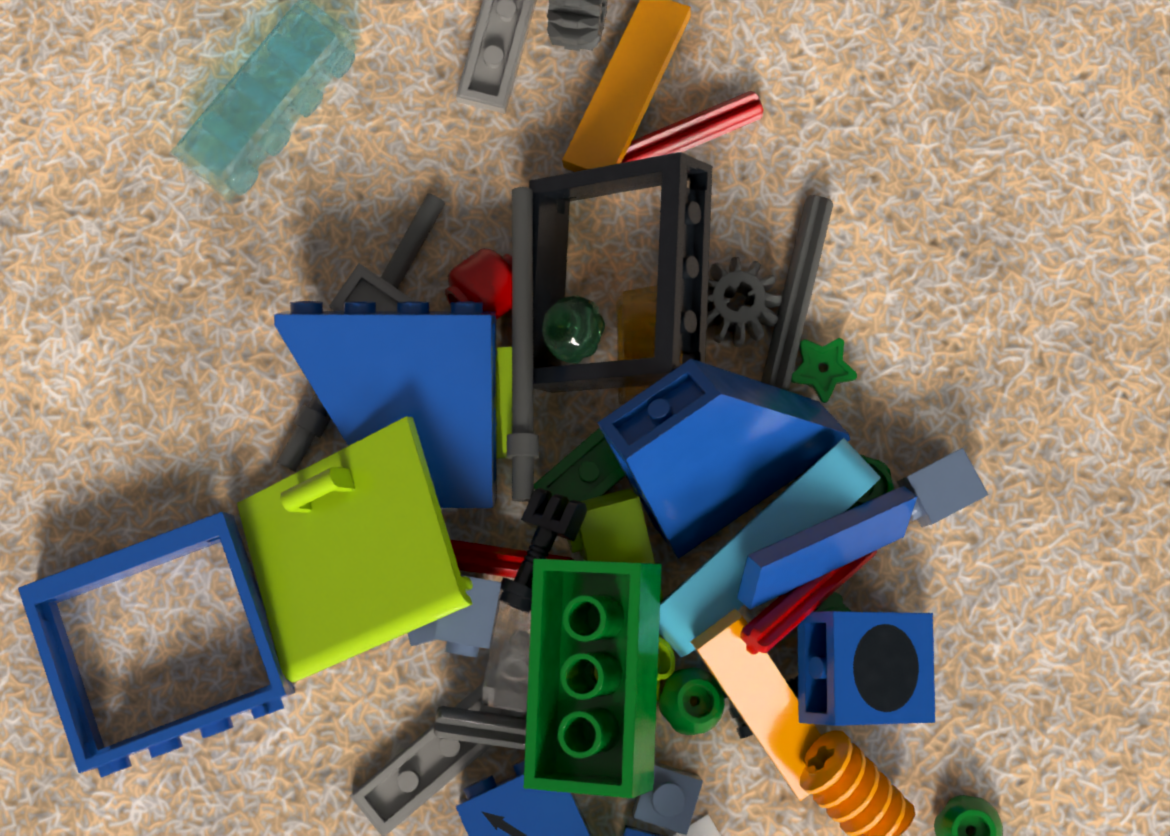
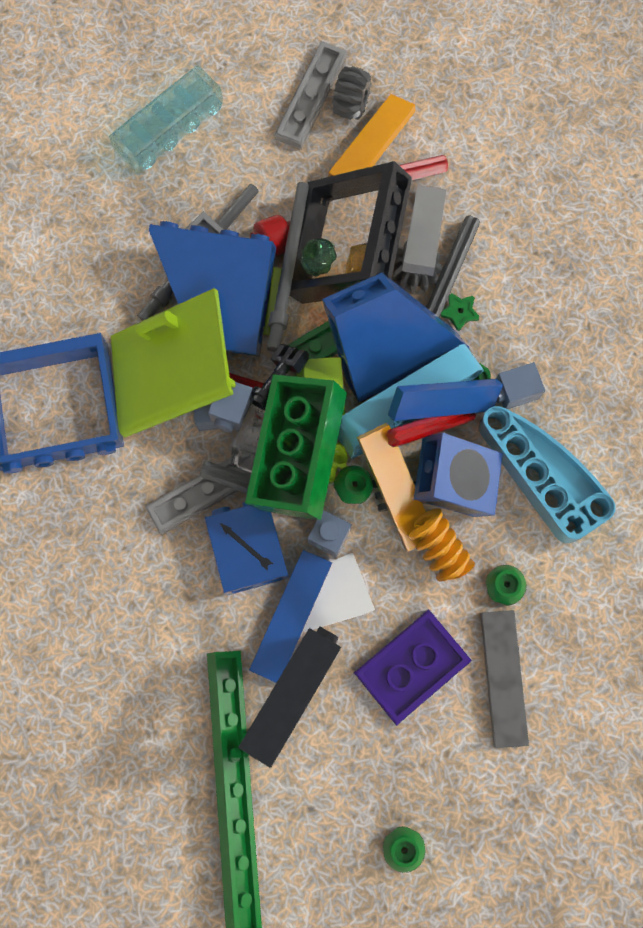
camera: 10 degrees right, 5 degrees down
(743, 242) = (424, 230): none -> light grey tile
(1026, 630) = (558, 474): none -> medium azure beam

